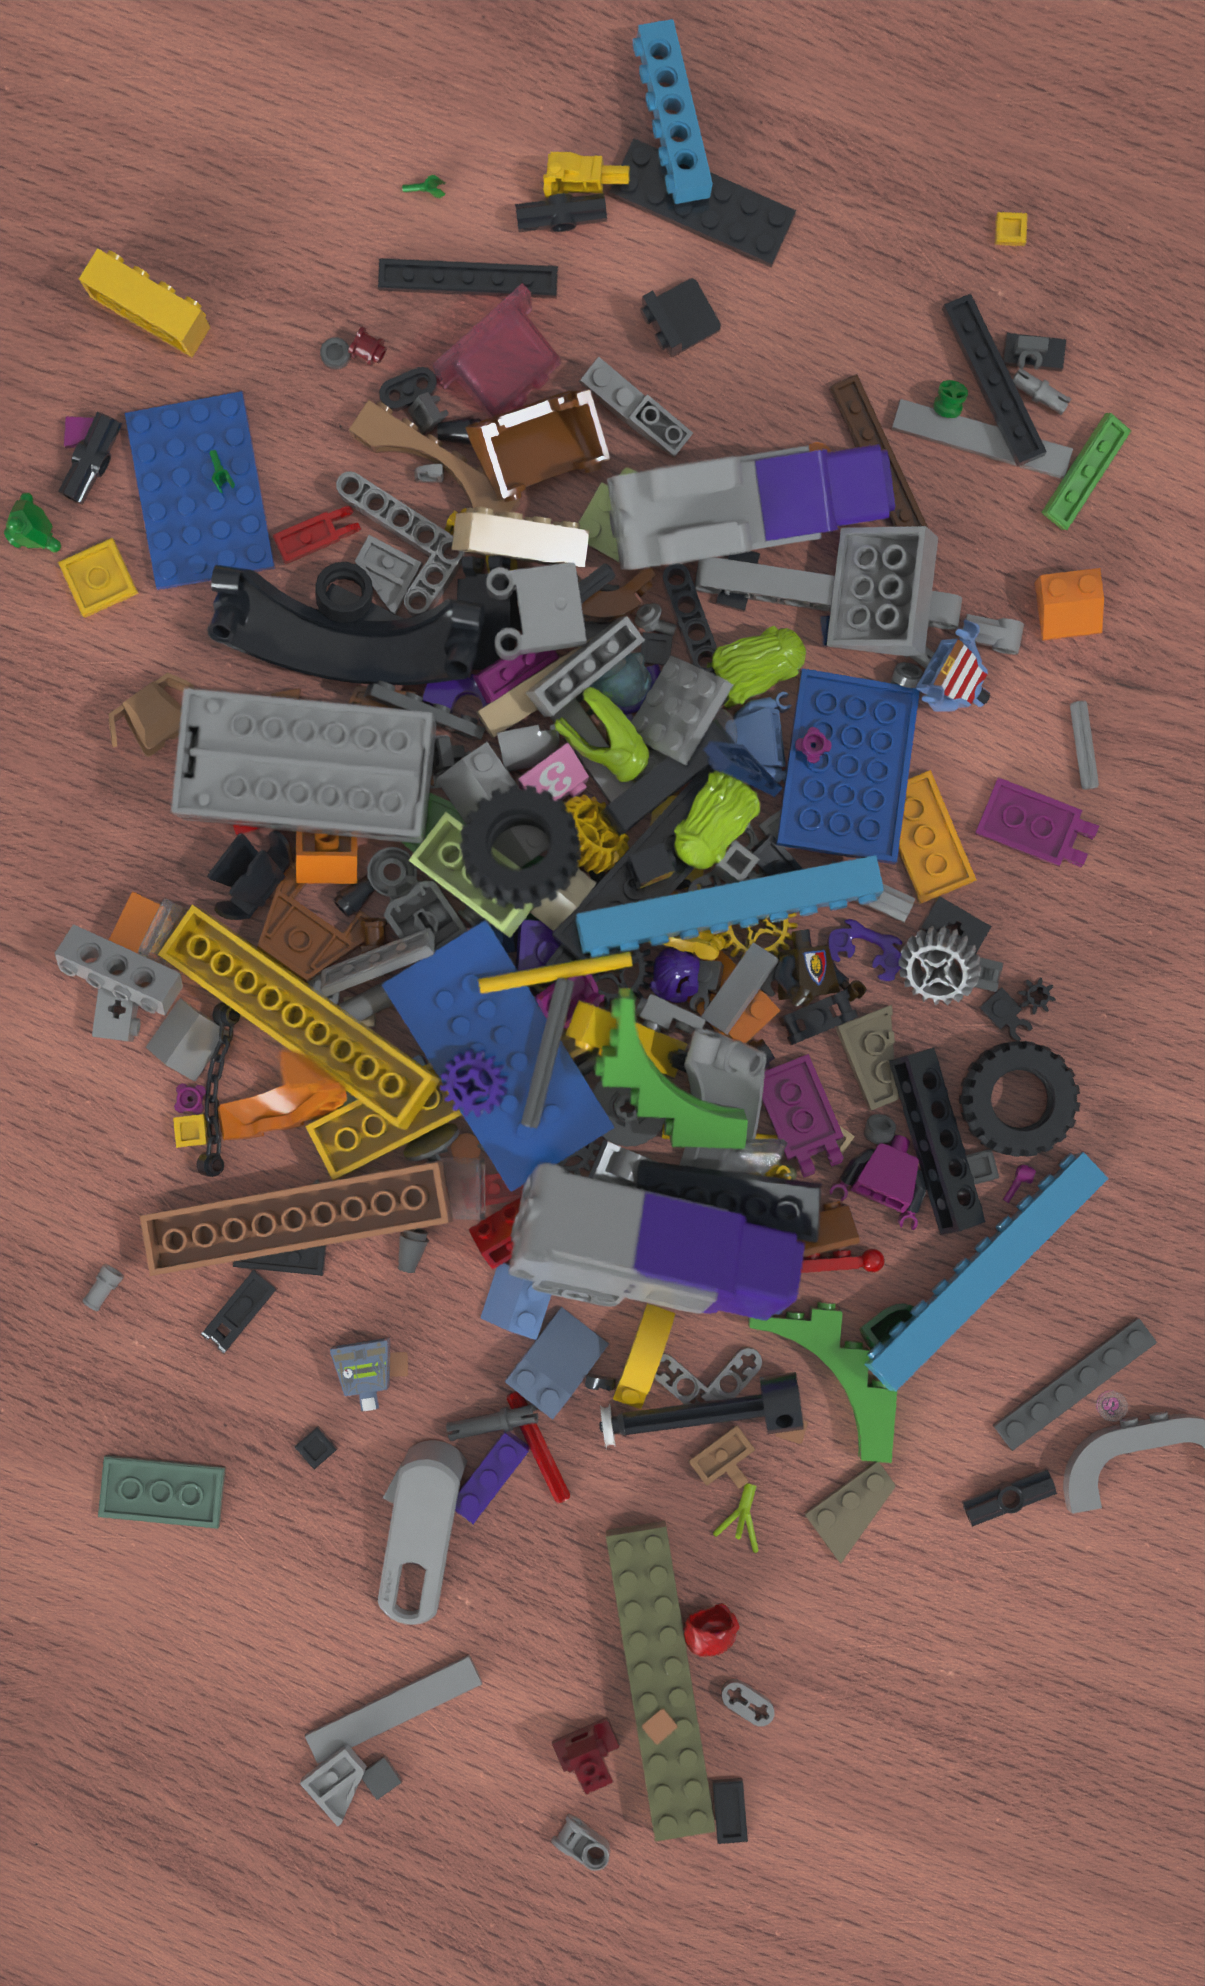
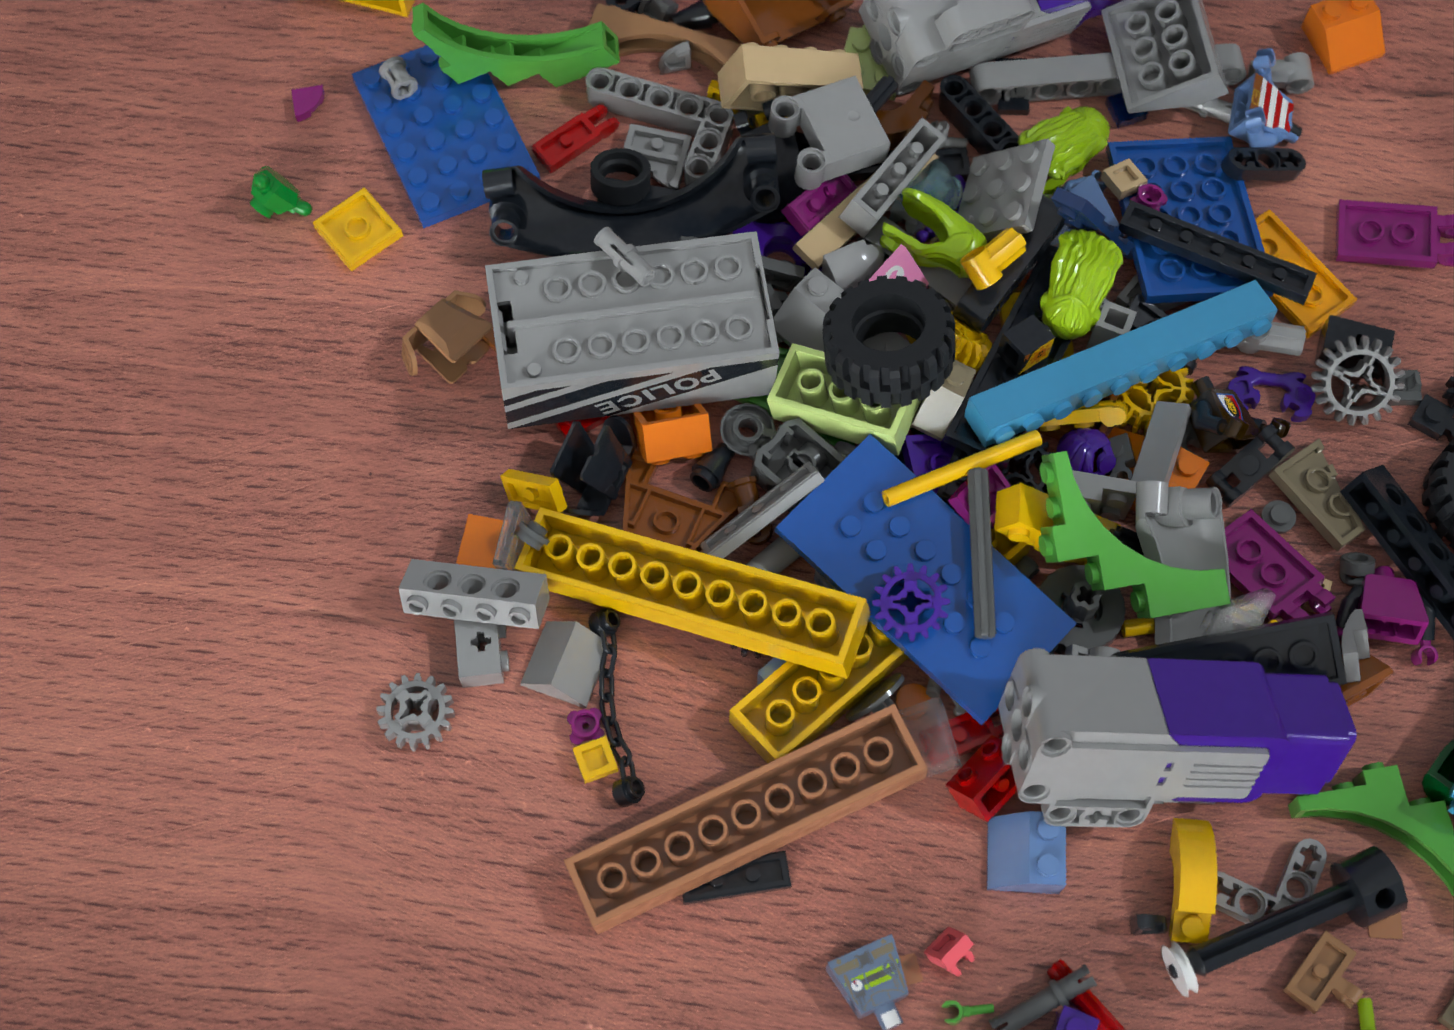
camera: 20 degrees left, 20 degrees down
(45, 1040) = (424, 701): none -> light grey gear
(90, 458) = (325, 119): black piece -> none
(107, 1279) = (539, 956): light grey pin -> none
(163, 437) = (398, 77): none -> light grey bush
(177, 933) = (533, 534): none -> dark grey plate
(189, 881) = (534, 490): none -> yellow plate
(220, 475) = (465, 99): green hand -> none
(240, 1310) = (705, 951): black plate -> none
(274, 442) = (514, 57): none -> bright green arch
(306, 1095) = (724, 678): orange windscreen -> none
(307, 714) = (610, 243): none -> light grey pin
(411, 1248) = (885, 826): dark grey cone -> none
(431, 1409) = (967, 1011): none -> bright green hand
(432, 1360) = (949, 949): none -> coral tile
(556, 1363) = (1092, 916): sand blue slope -> none
(636, 783) = (986, 262): none -> yellow piece
(799, 715) = (1123, 179): none -> tan tile
(830, 1066) = (1279, 516): none -> dark grey plate
(838, 1206) = (1354, 645): none -> light grey slope
(853, 816) = (1217, 252): none -> black plate
(871, 1261) = (1371, 714): red plate -> none
(906, 675) = (1212, 128): dark grey tile -> none
(927, 733) = (1283, 164): none -> black beam
(1084, 745) = (1411, 153): light grey axle -> none

